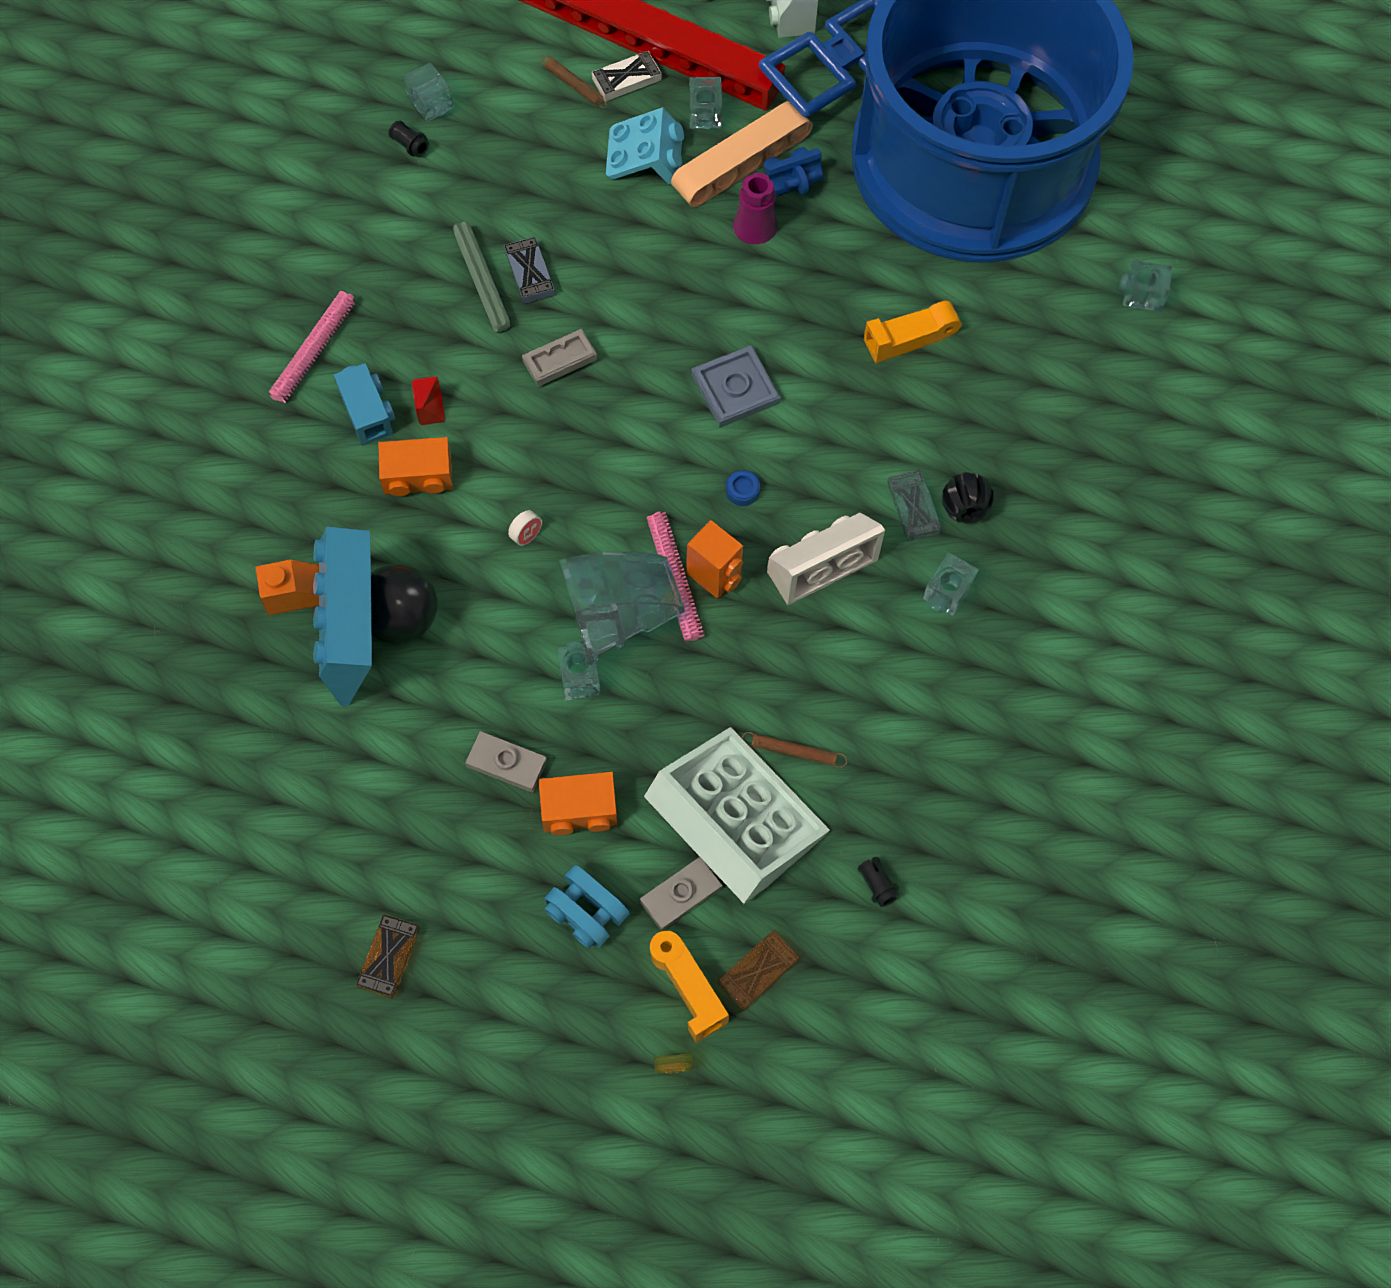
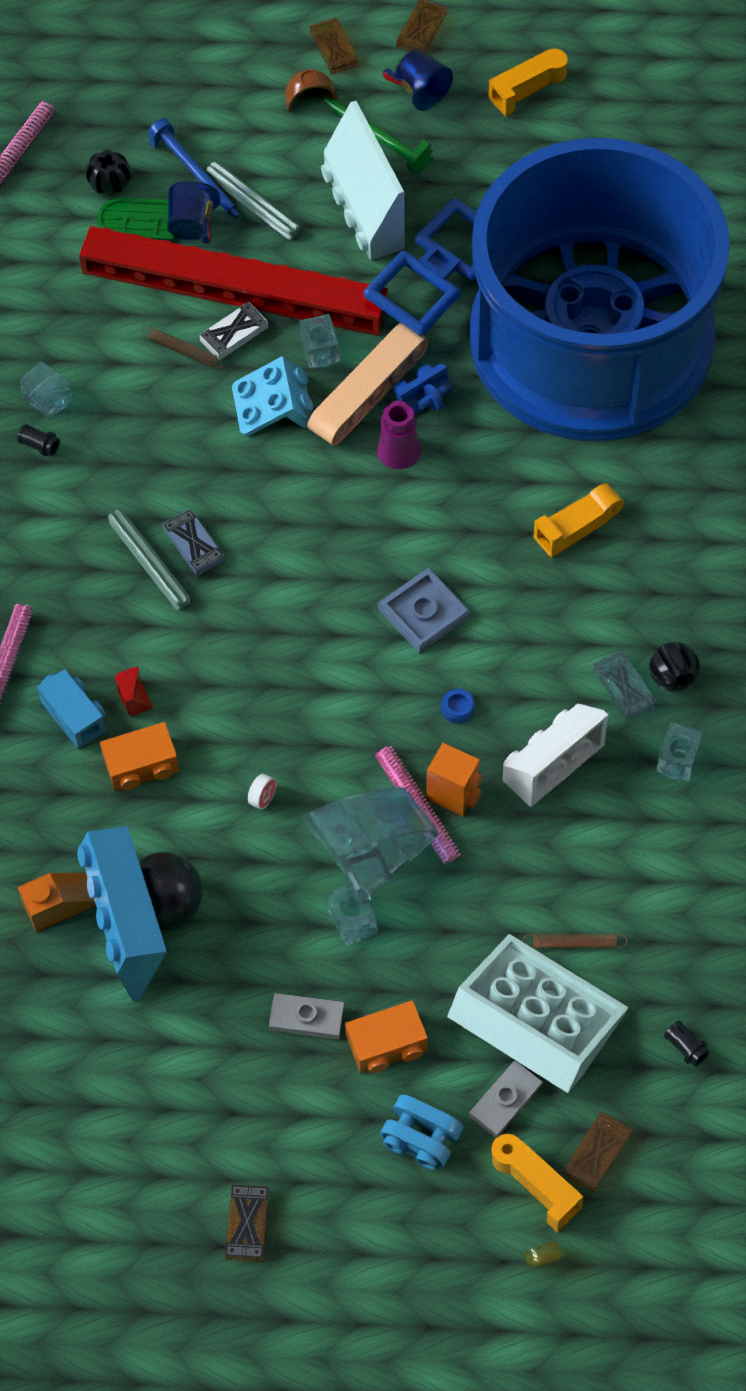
camera: 10 degrees left, 5 degrees down
(559, 357) = (247, 621): light grey plate -> none

